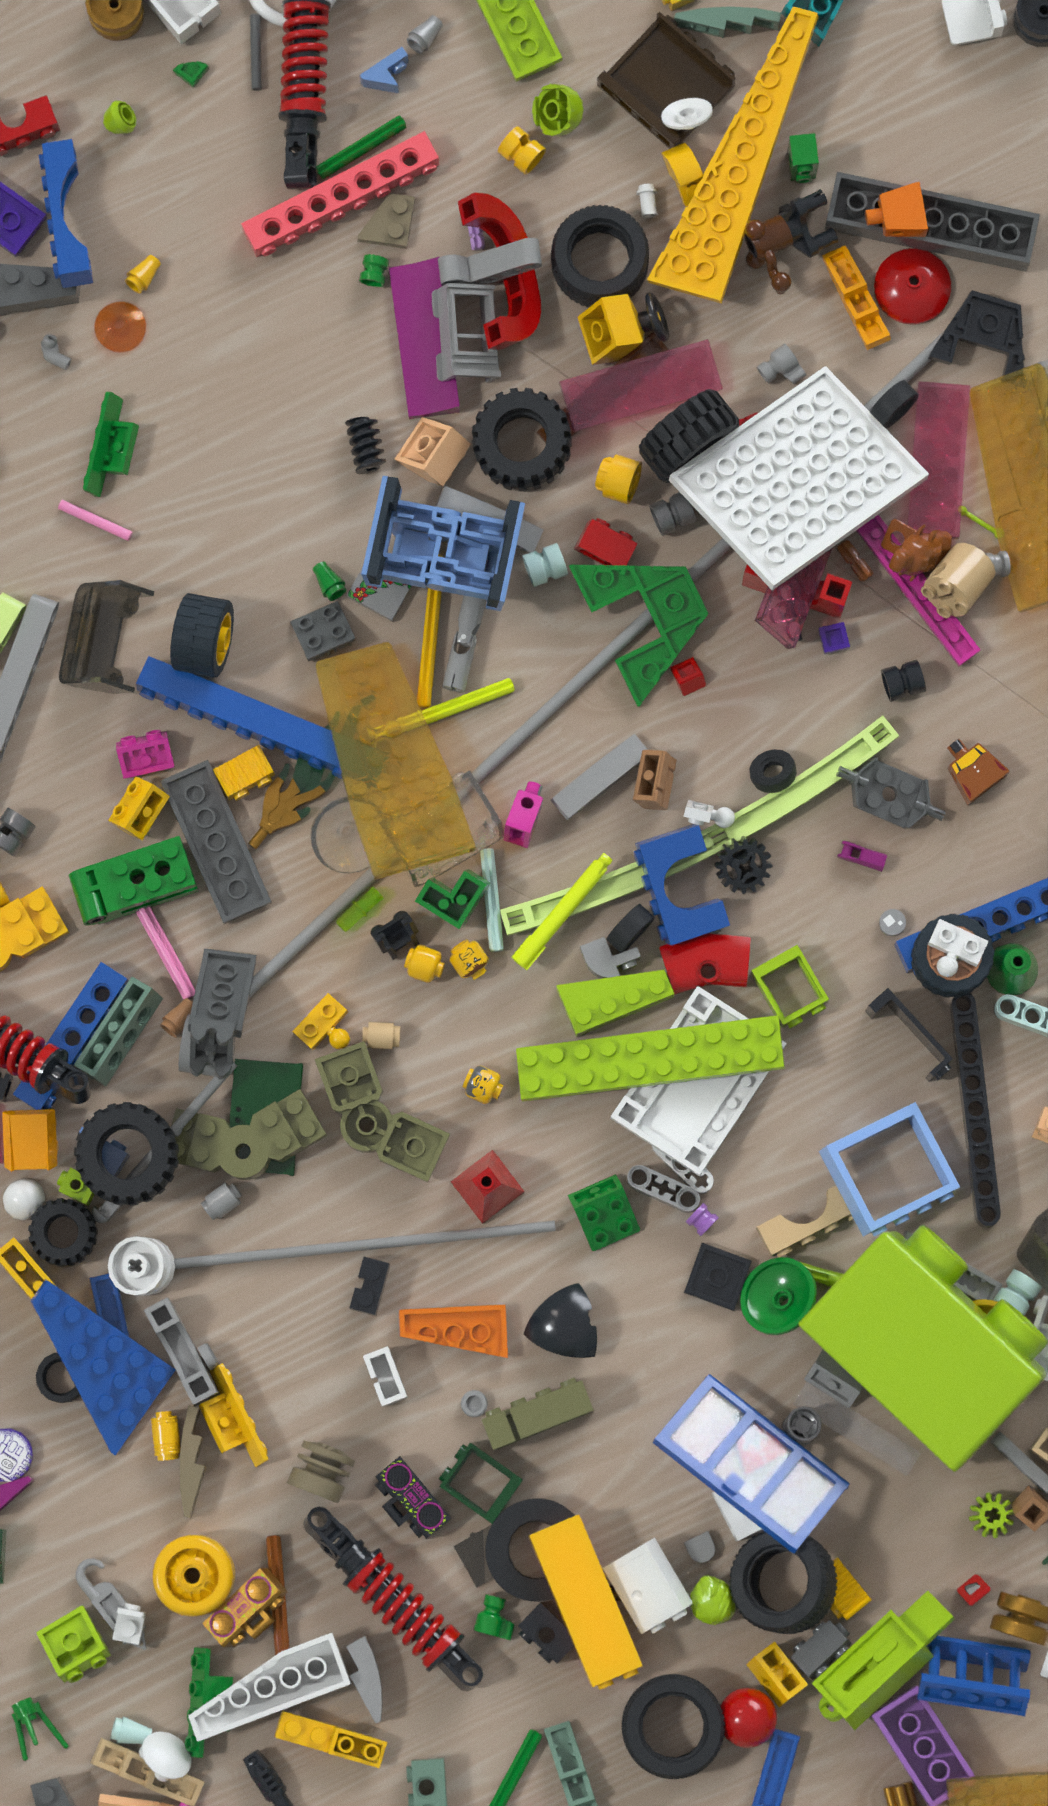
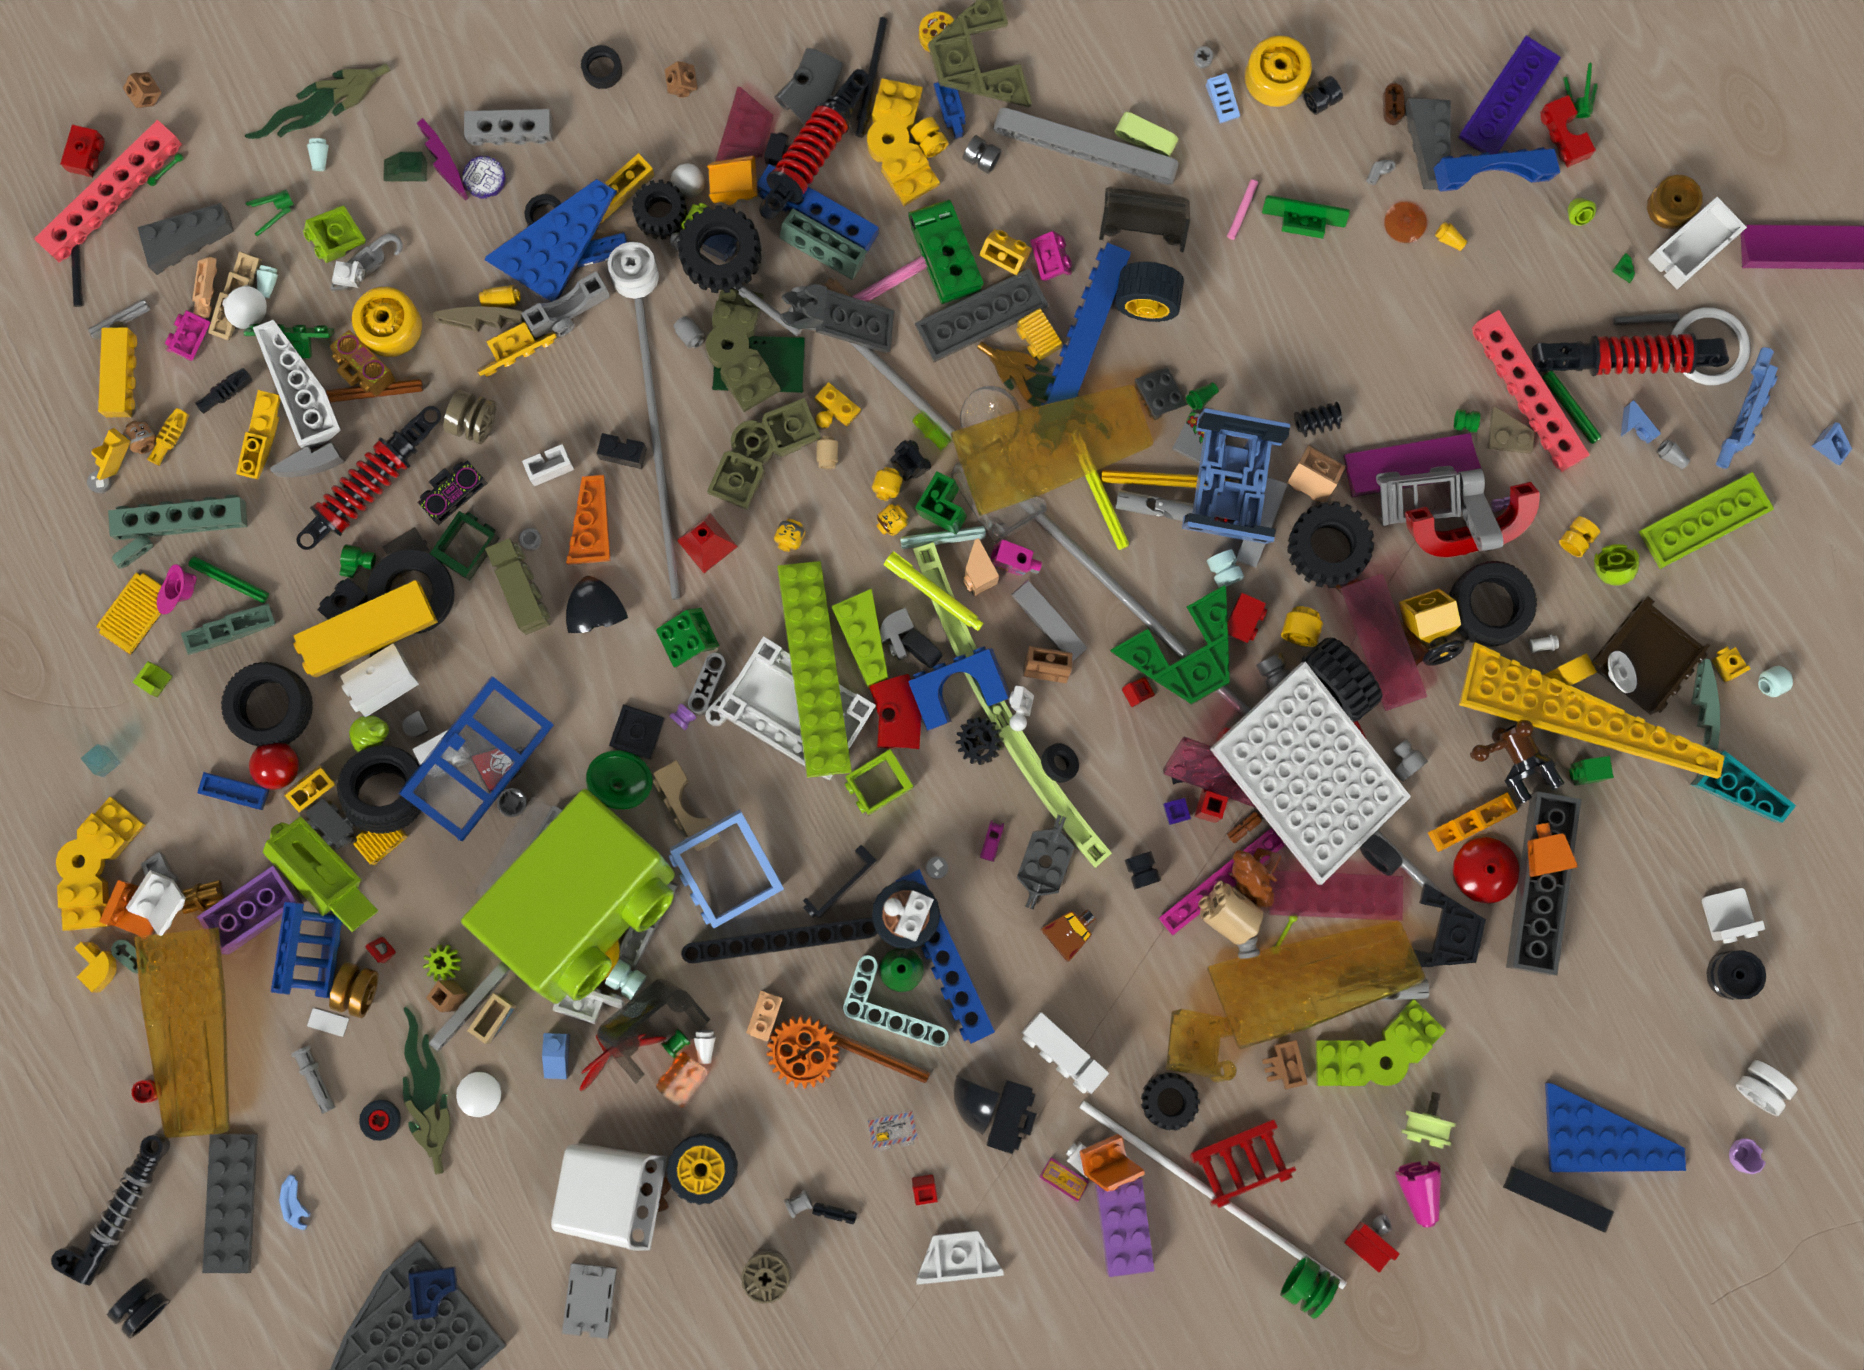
camera: 80 degrees right, 0 degrees up
(536, 856) = (979, 572): none -> light nougat slope
(822, 1275) = (639, 816): lime piece -> none

